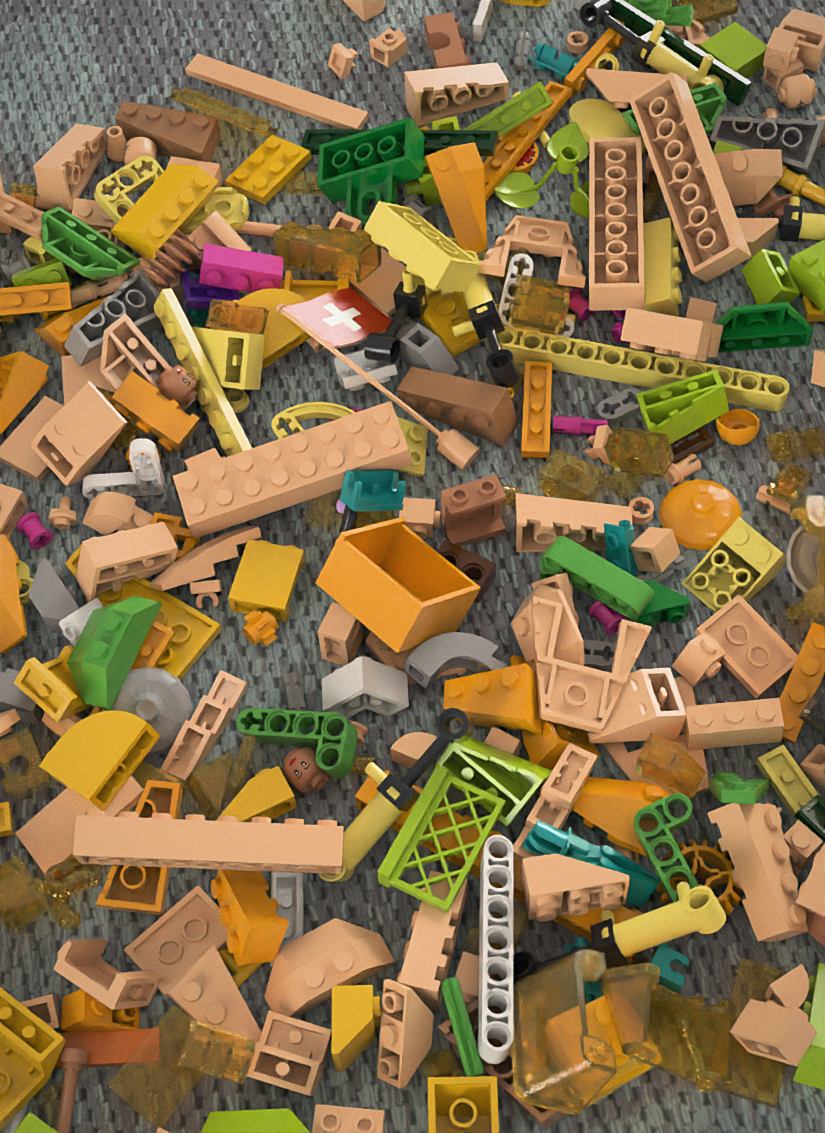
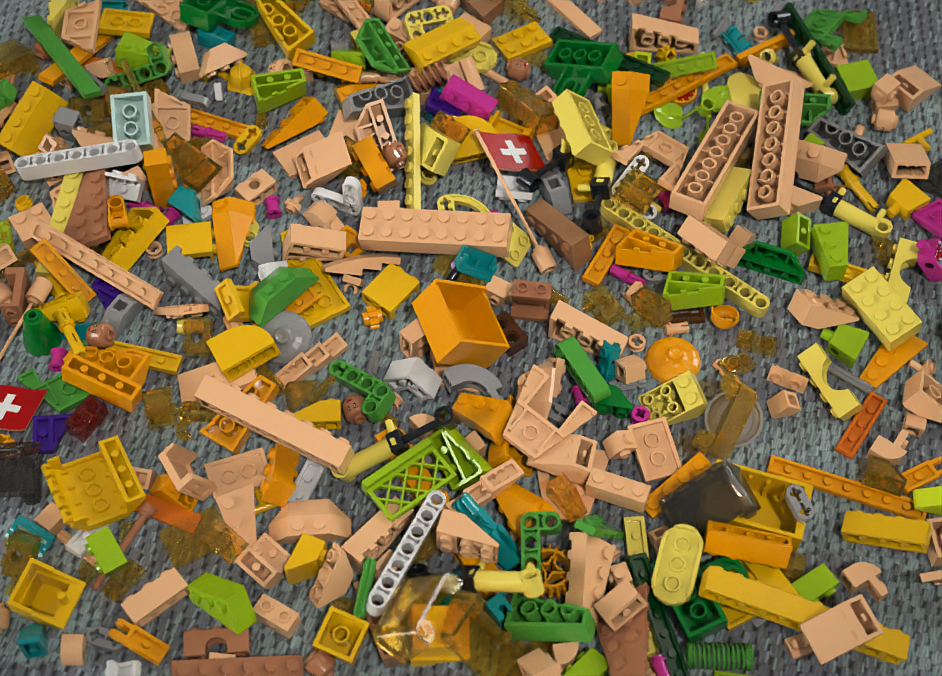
camera: 20 degrees right, 0 degrees up
(283, 206) = (518, 69): none -> nougat head
(470, 112) = (665, 53): none -> yellow gear
(595, 380) = (649, 252): none -> light orange wedge
(699, 608) = (639, 415): none -> dark pink bush
(746, 953) = (548, 621): none -> bright green wedge

